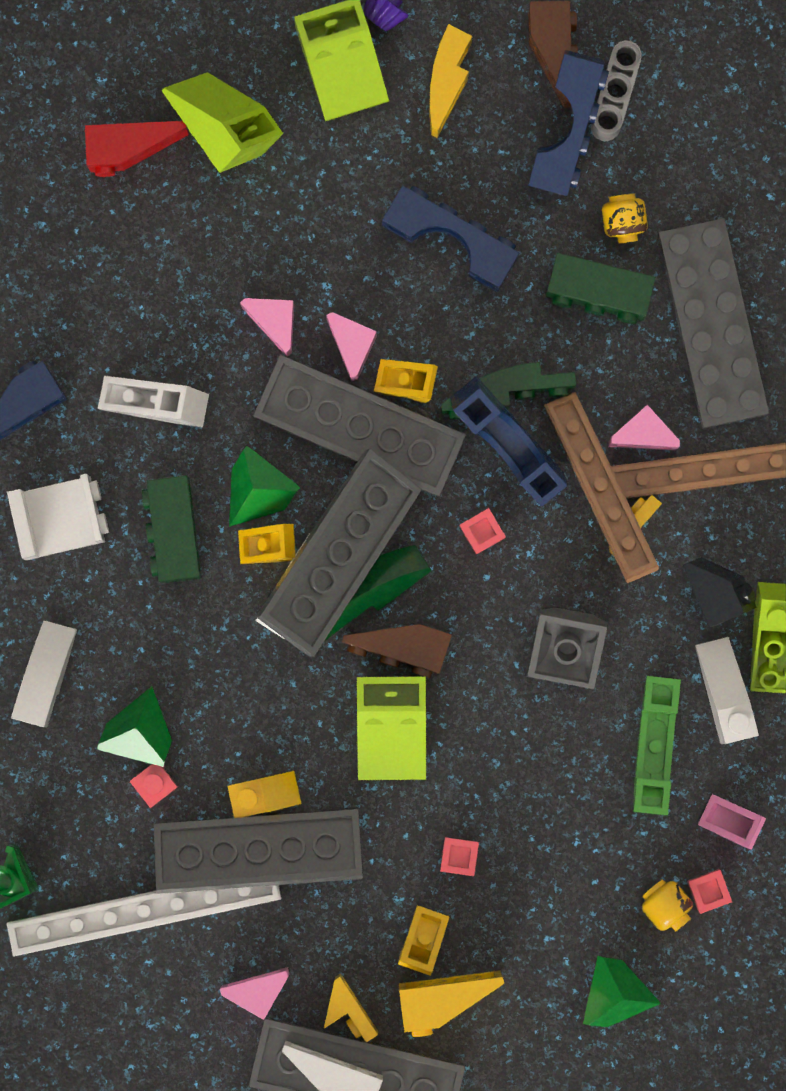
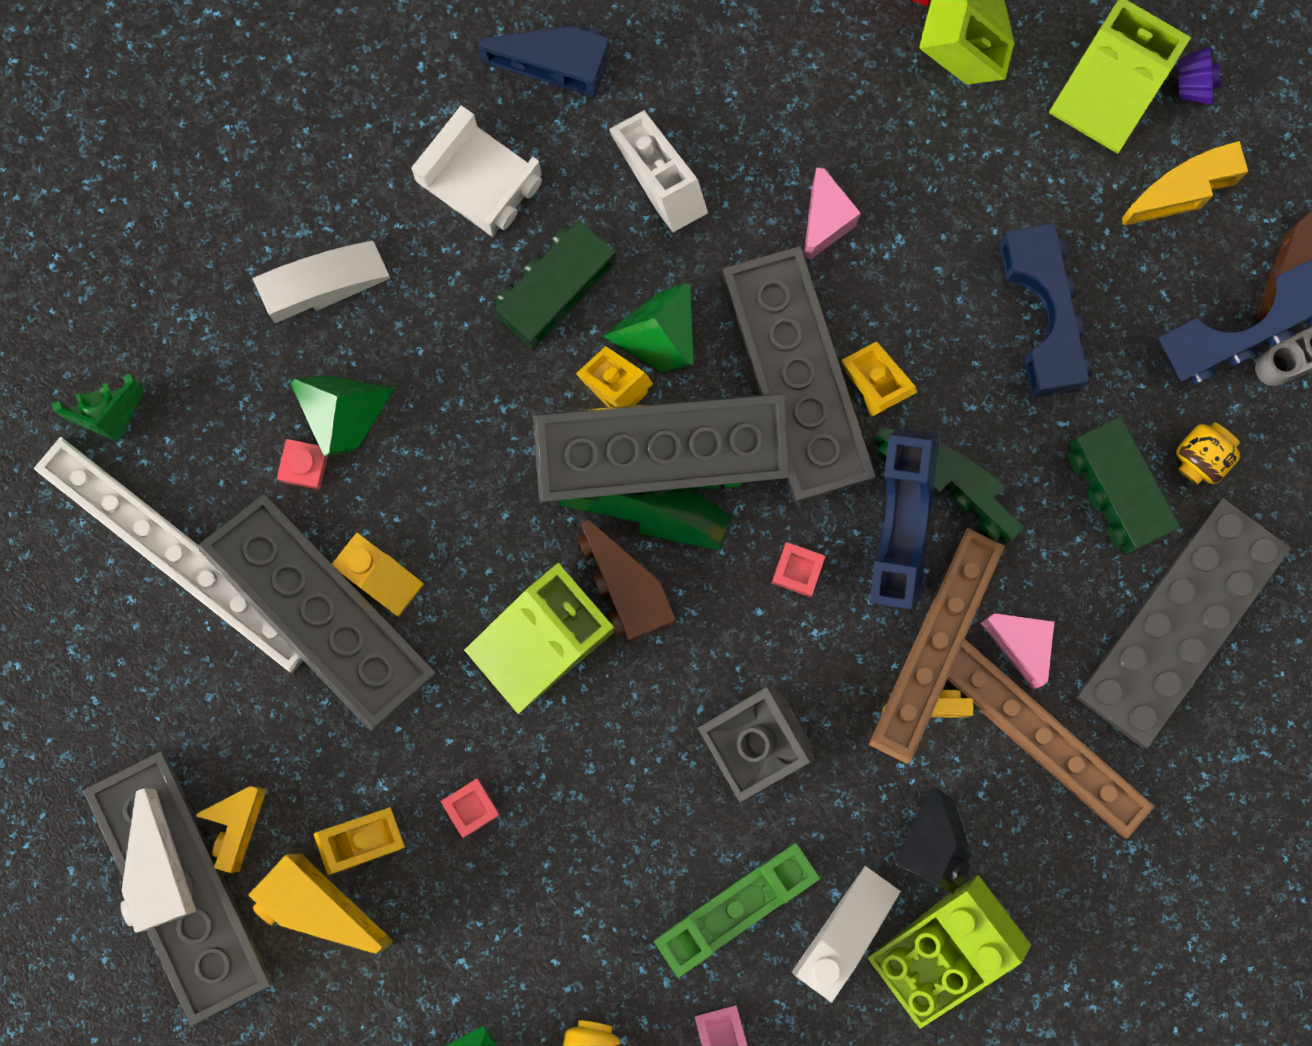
camera: 50 degrees right, 5 degrees down
(257, 992) = (179, 724): bright pink slope -> none
(352, 341) = (870, 304): bright pink slope -> none

